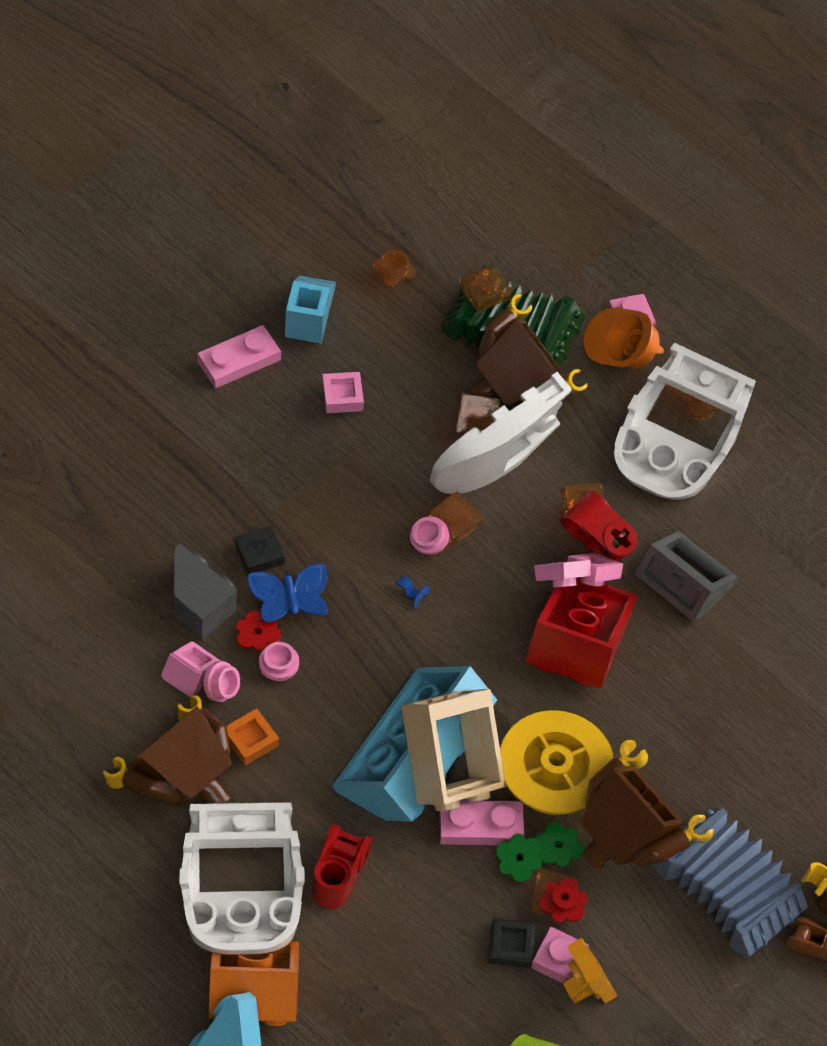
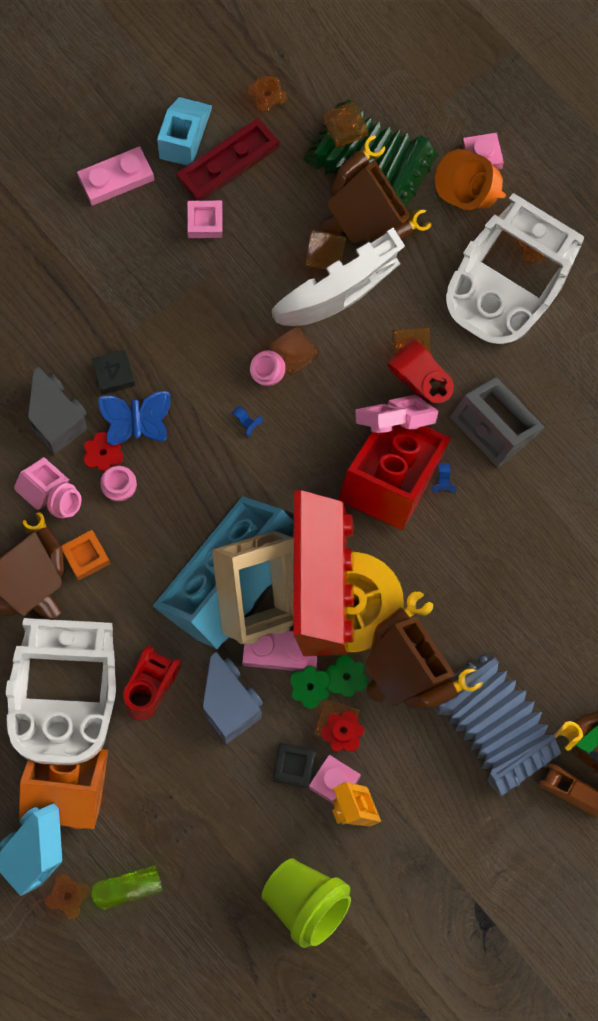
camera: 10 degrees right, 15 degrees up
(360, 333) = (227, 160): none -> dark red plate
(431, 878) = (226, 702): none -> sand blue slope
(524, 729) = (321, 575): none -> slope
(636, 637) = (444, 474): none -> blue piece

